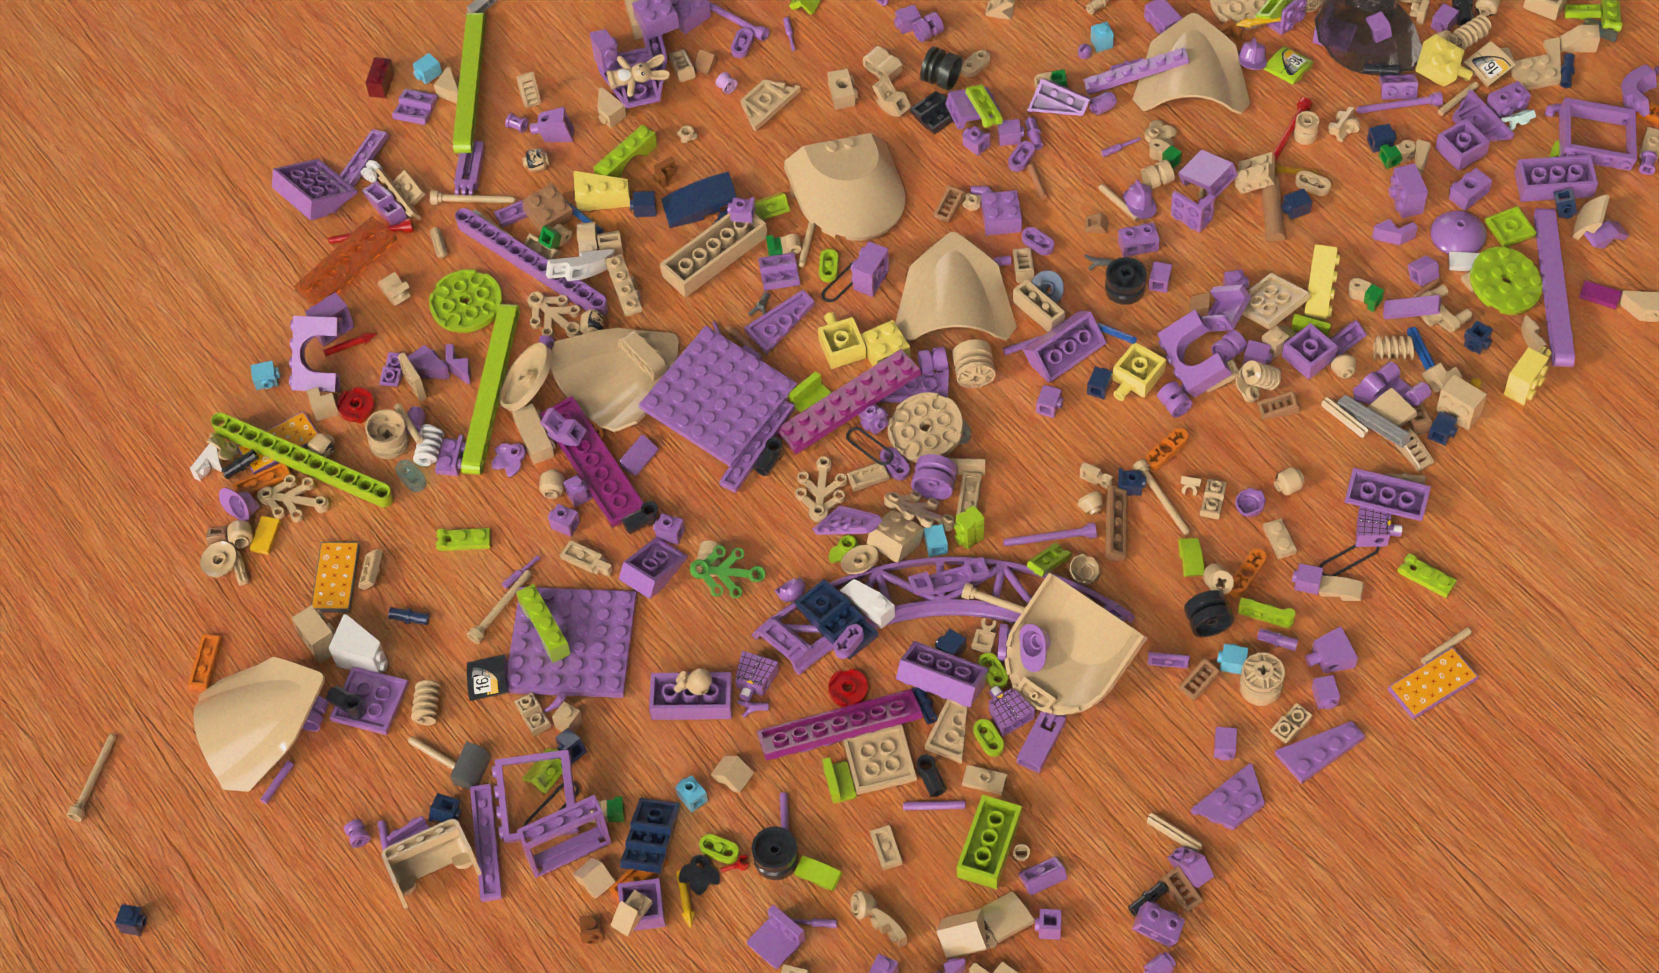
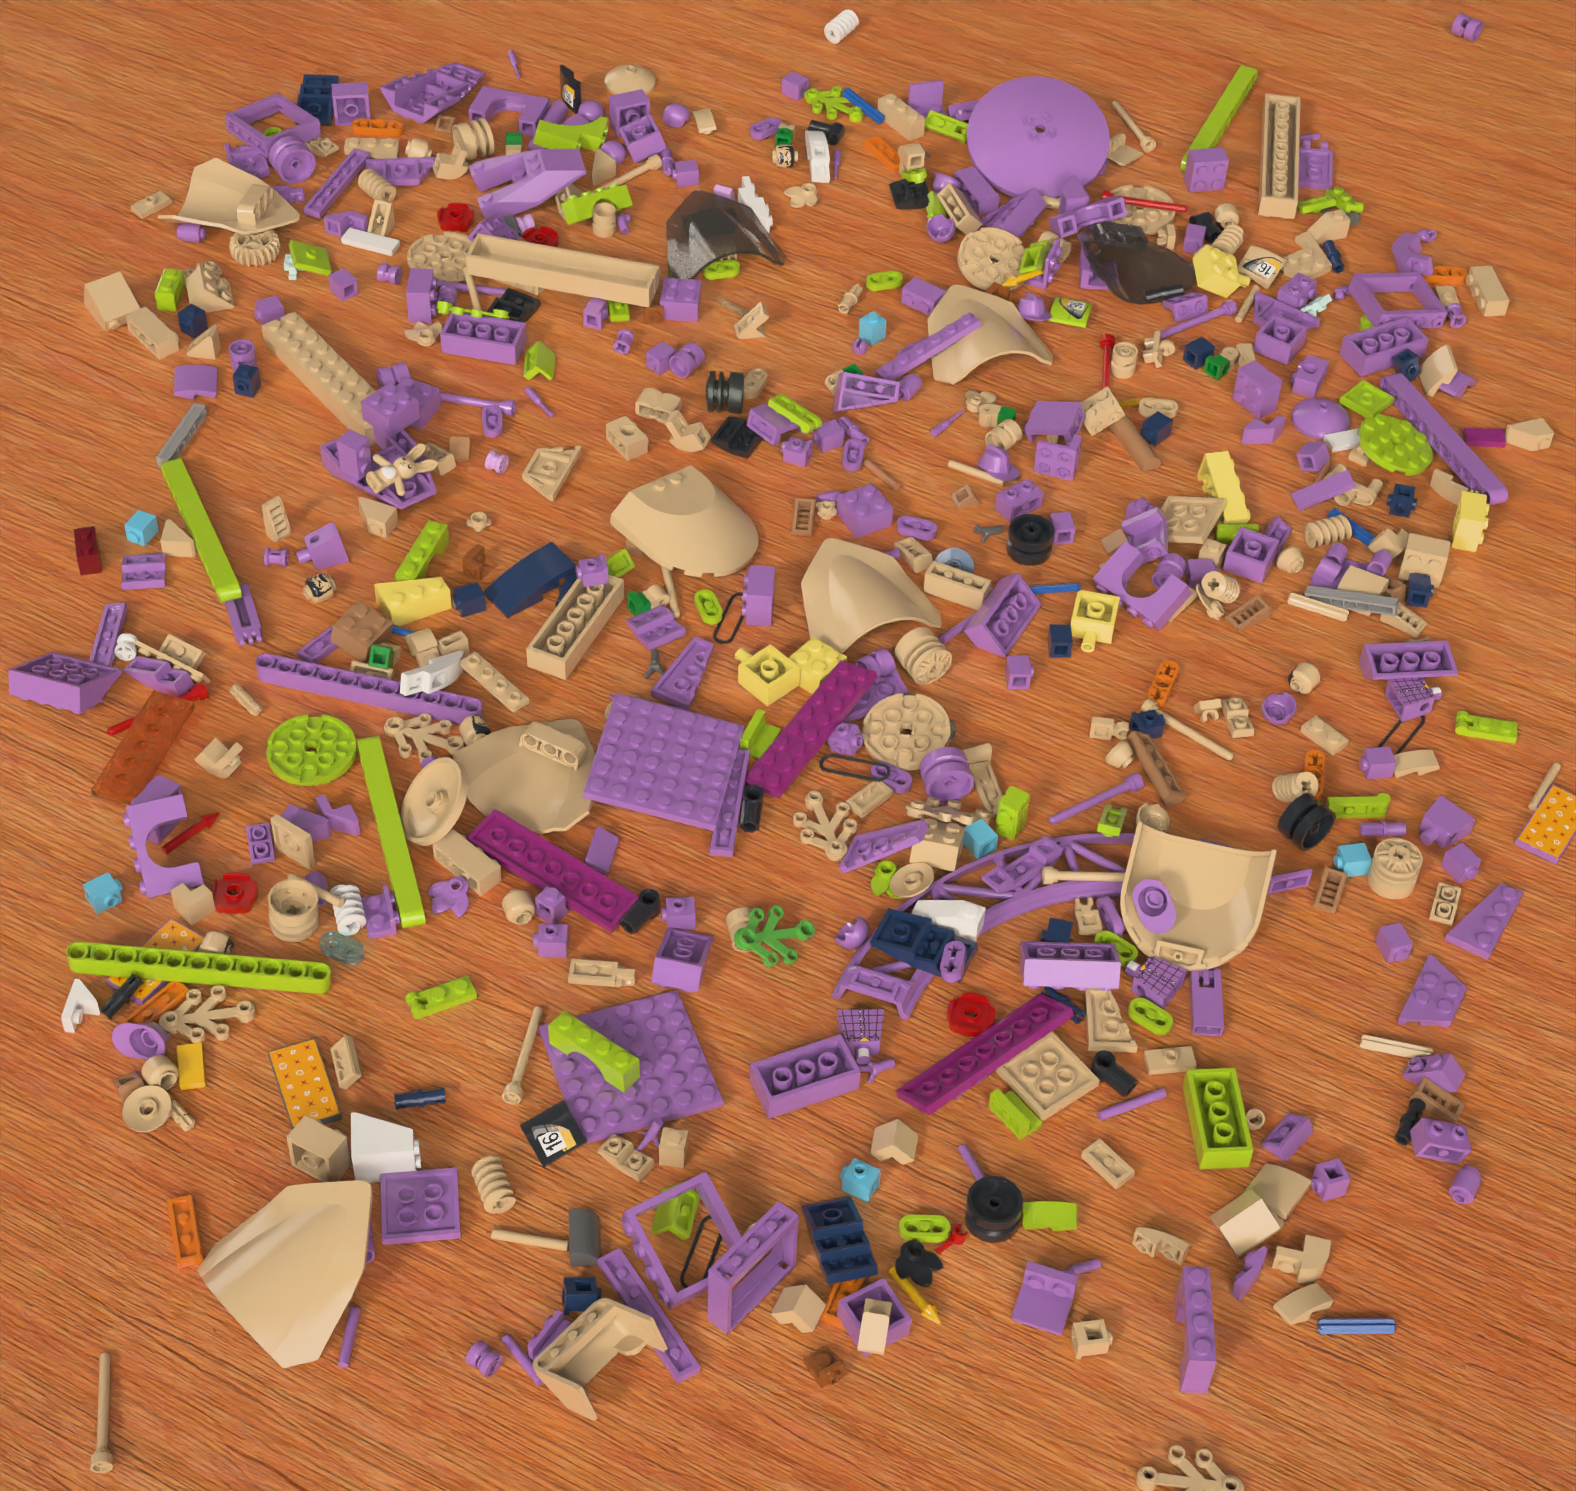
camera: 30 degrees left, 10 degrees down
(227, 449) = (94, 984): tan plate -> none
(345, 701) = (398, 1213): black piece -> none
(437, 197) = (220, 654): tan piece -> none
(516, 575) = (526, 1015): medium lavender piece -> none
(562, 430) = (507, 845): medium lavender brick -> none
(570, 741) = (690, 1167): dark blue brick -> none
(697, 682) = (813, 1053): tan piece -> none
(862, 904) = (1118, 1231): tan cone -> none
(1174, 399) = (1148, 636): medium lavender wheel -> none
(1191, 556) = (1248, 772): lime slope -> none
(1366, 292) = (1269, 490): leg -> none
(1380, 27) = (1142, 255): medium lavender panel -> none

